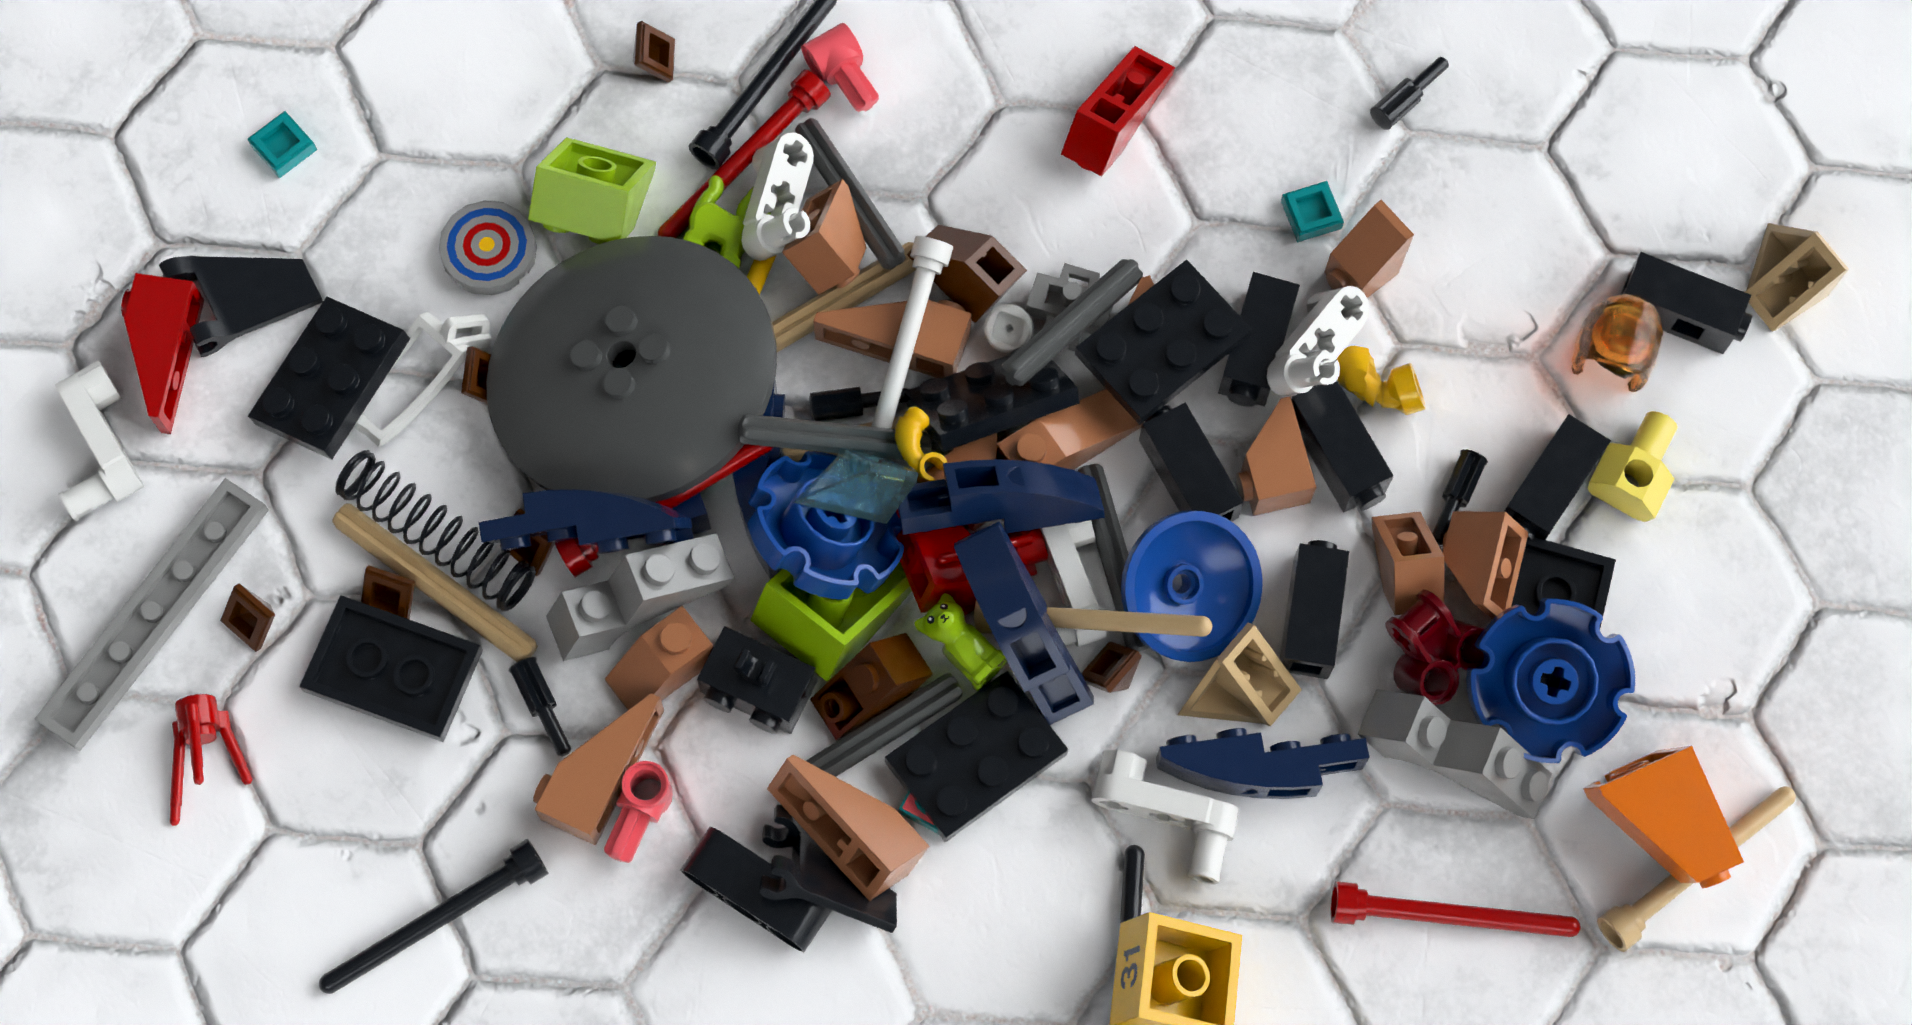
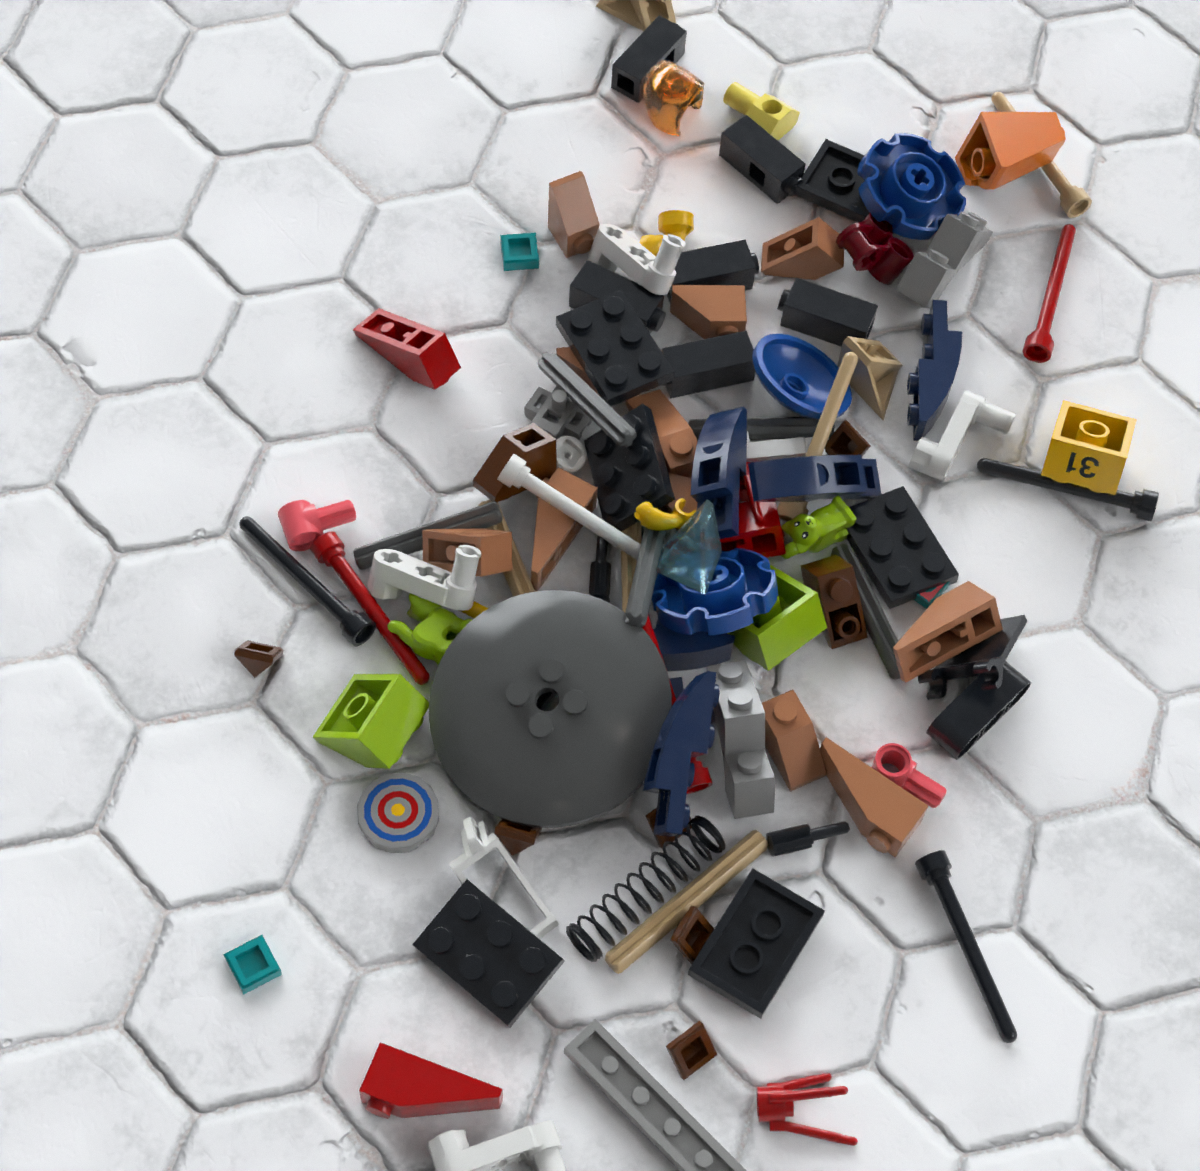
camera: 80 degrees left, 10 degrees down
(243, 294) = (388, 1013): black flag -> none
(756, 681) = (820, 673): black brick -> none
(1405, 95) = (446, 175): black axle -> none
(1459, 489) = (751, 214): black axle -> none
(1485, 557) = (807, 201): nougat slope -> none

